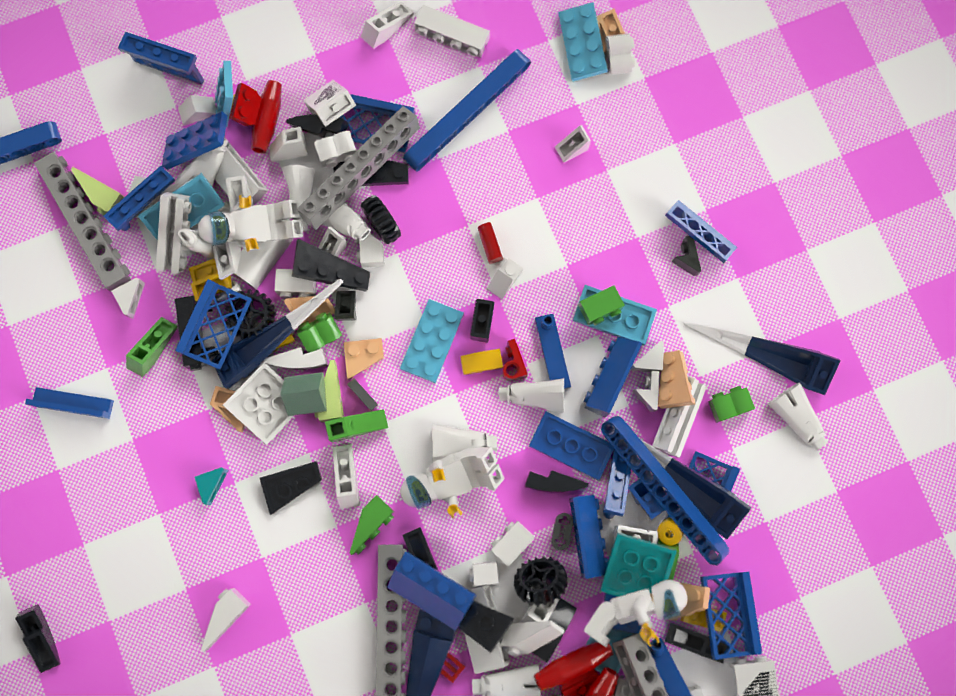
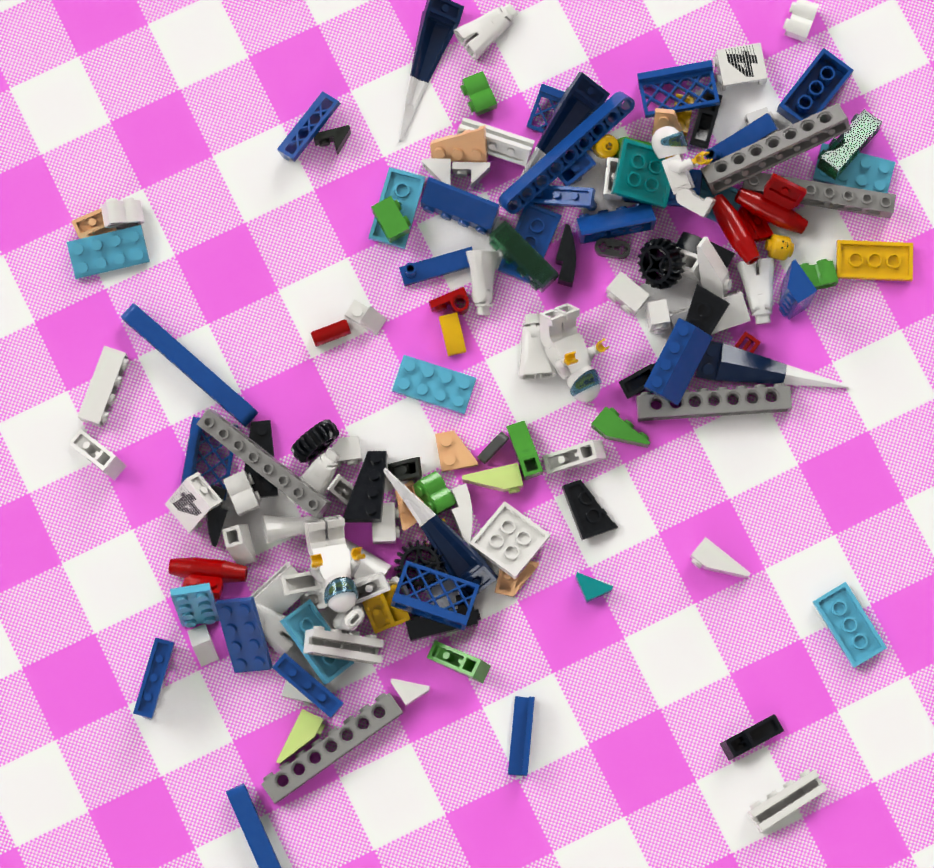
camera: 90 degrees left, 0 degrees up
(304, 394) = (498, 499): sand green slope -> none
(482, 320) = (412, 334): black brick -> none
(555, 436) = (523, 257): none -> clear green brick
(574, 144) = (222, 256): white slope -> none

